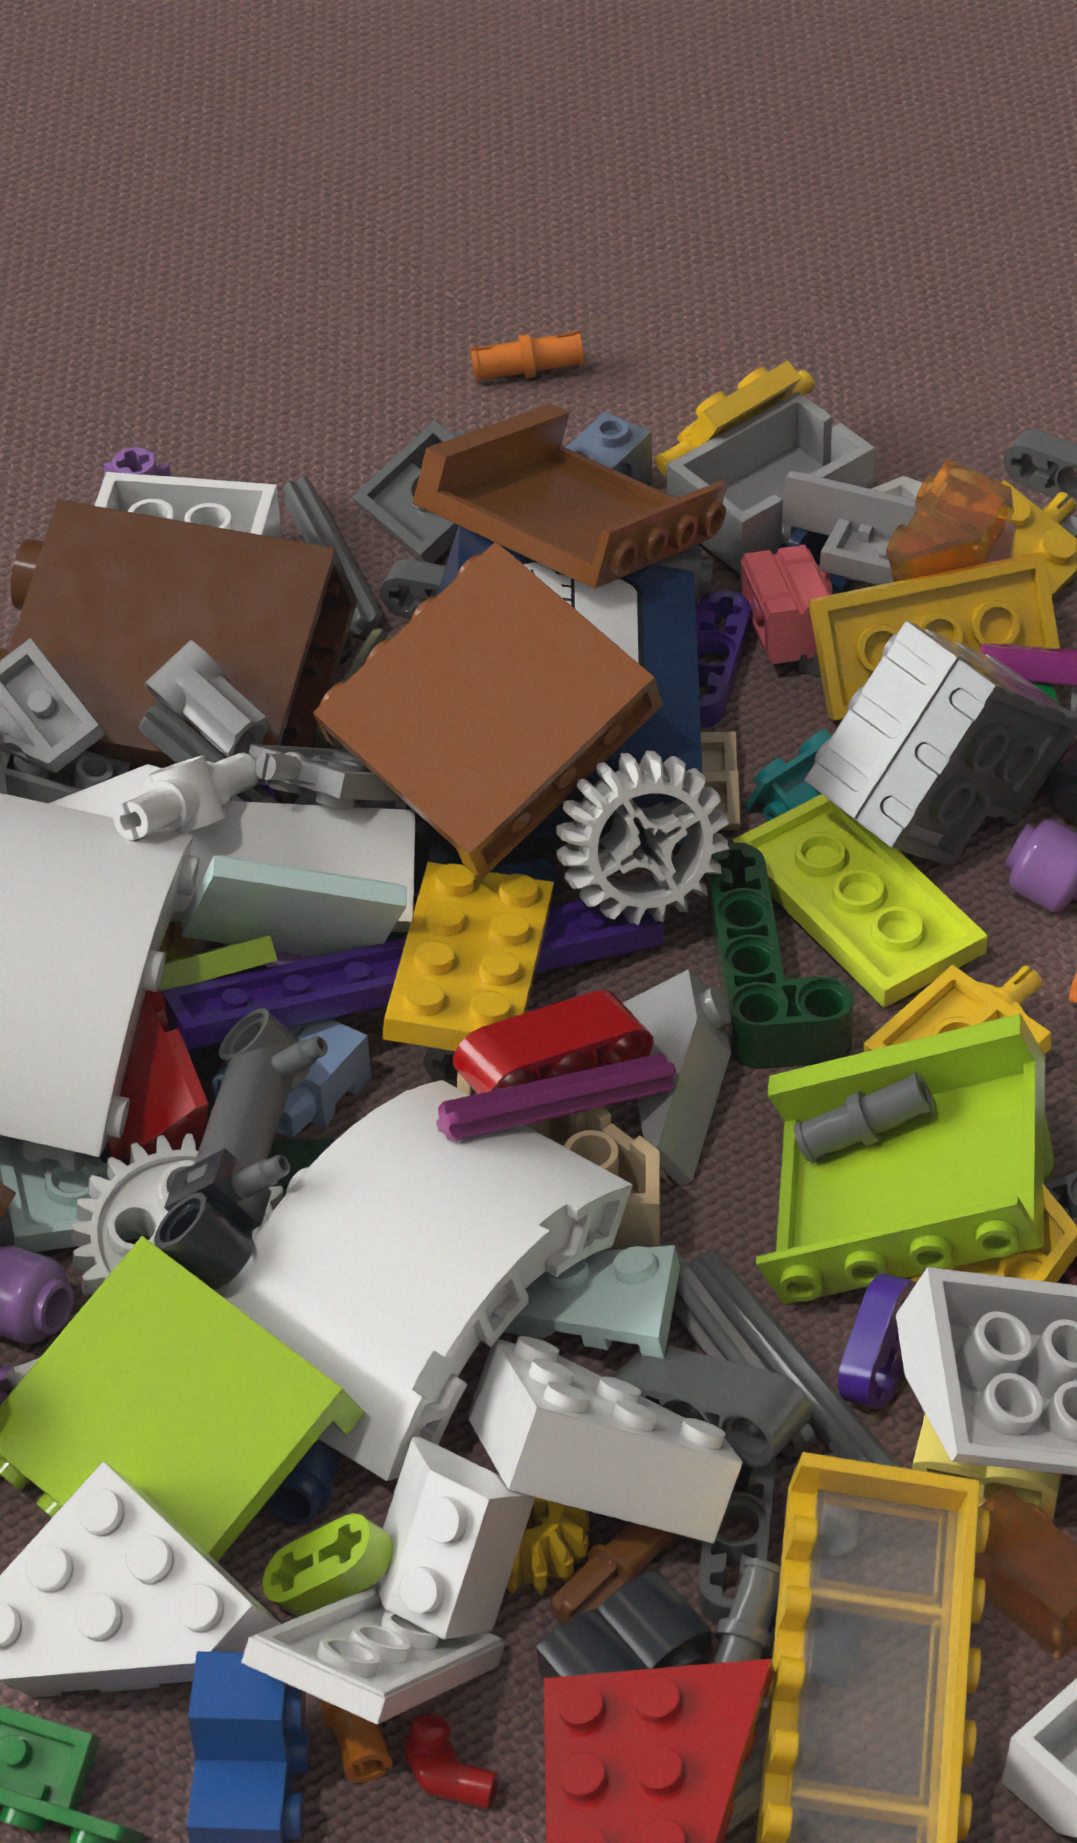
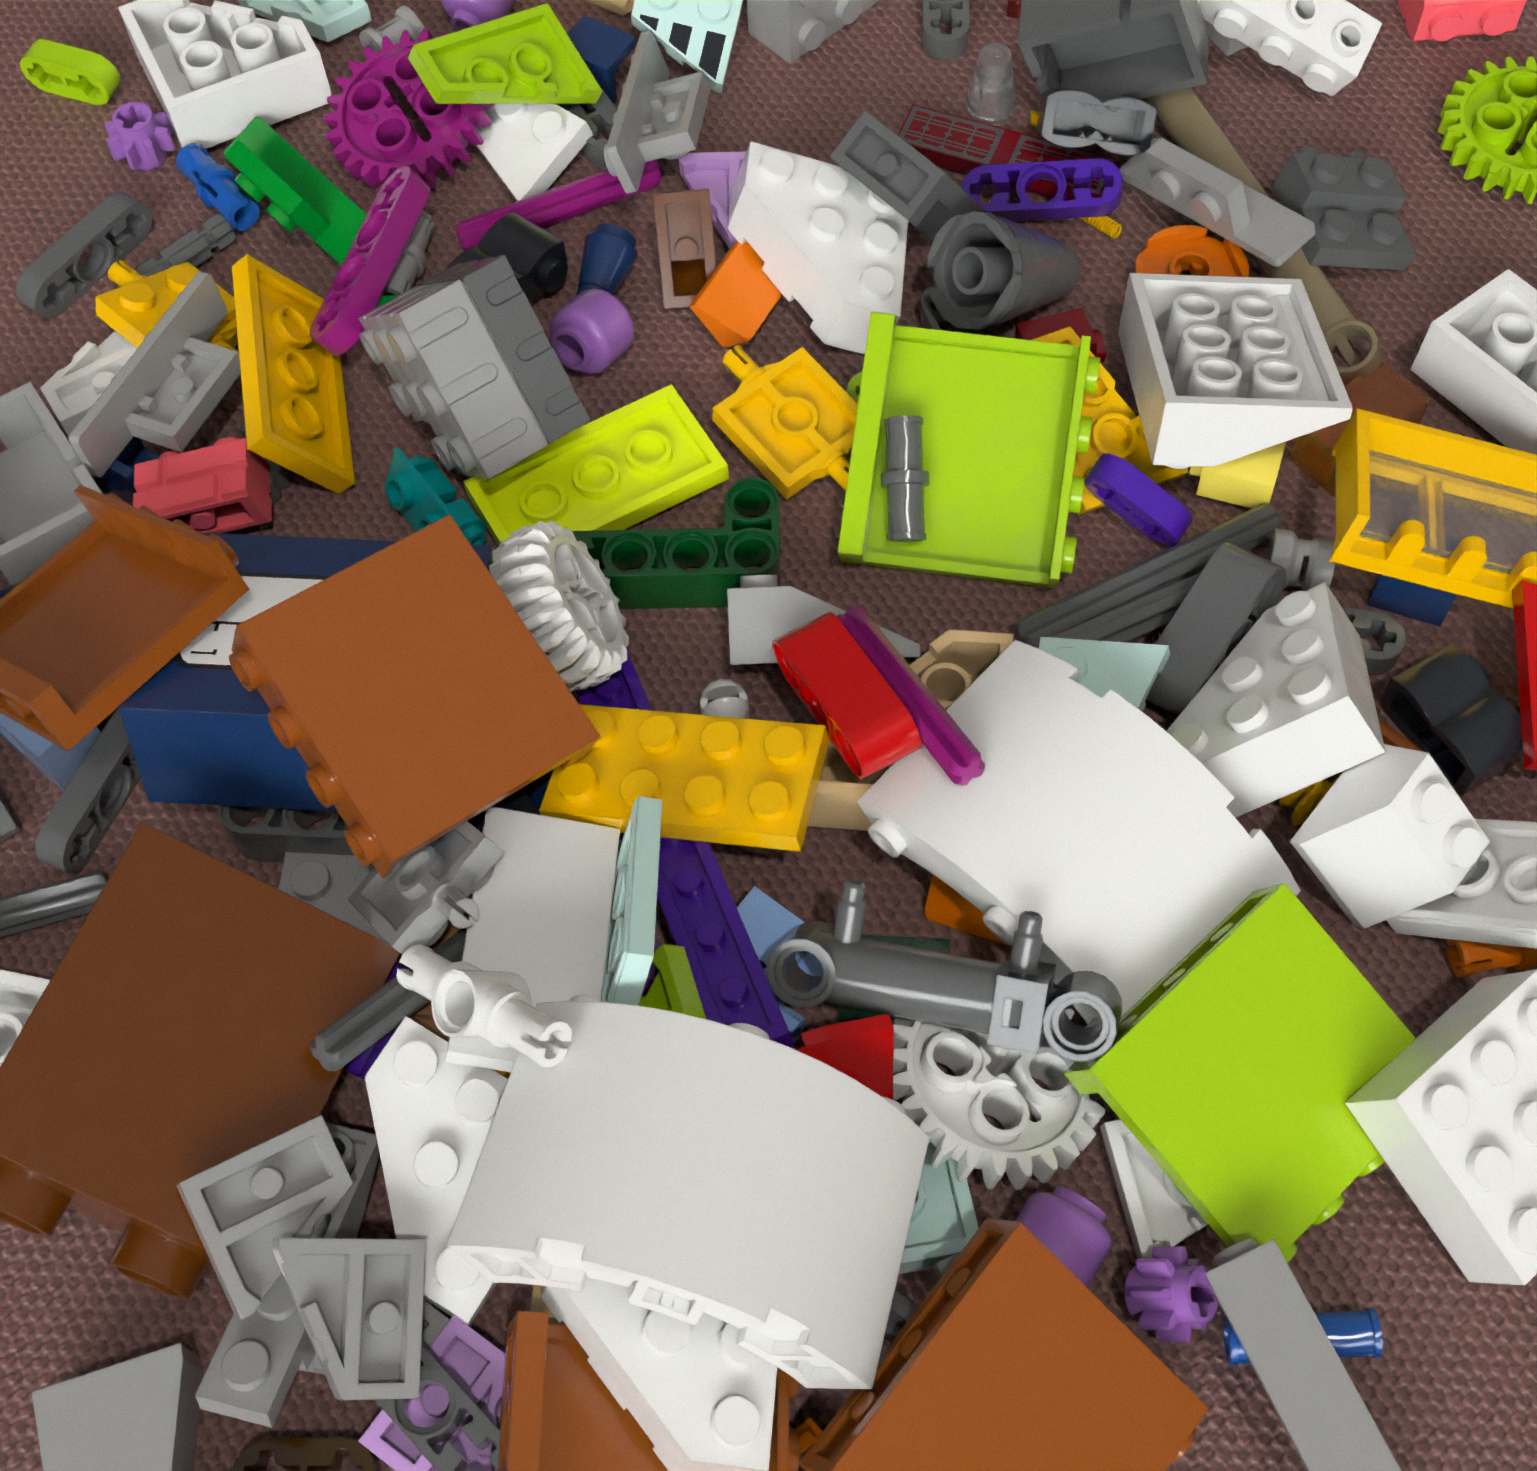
camera: 85 degrees left, 15 degrees up
(203, 696) = (302, 997): light grey piece -> none
(328, 1565) = (1412, 945): lime beam -> none
(748, 1628) = (1439, 624): dark grey pin -> none
(954, 523) = (202, 305): clear orange slope -> none

